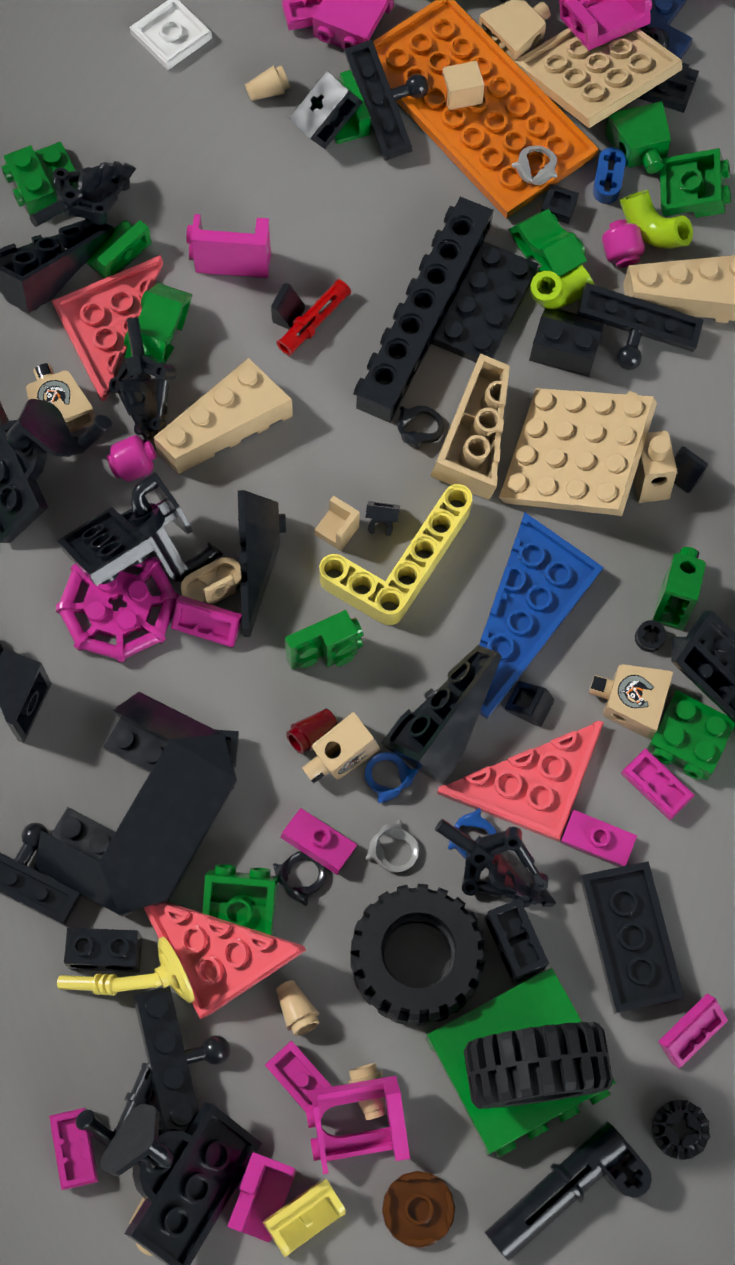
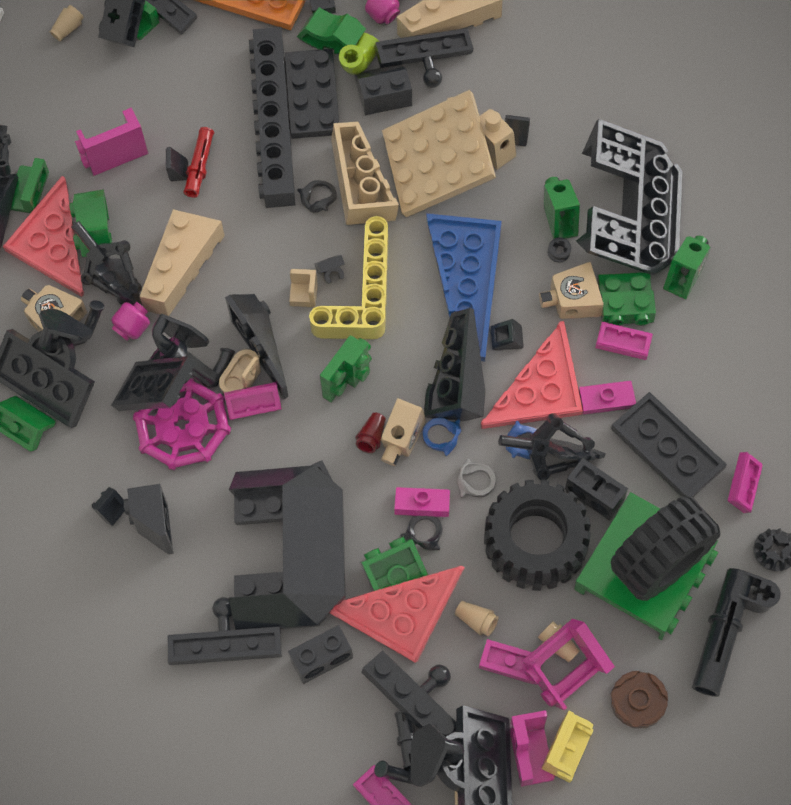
camera: 25 degrees left, 5 degrees down
(168, 973) = (375, 644): light yellow dish -> none

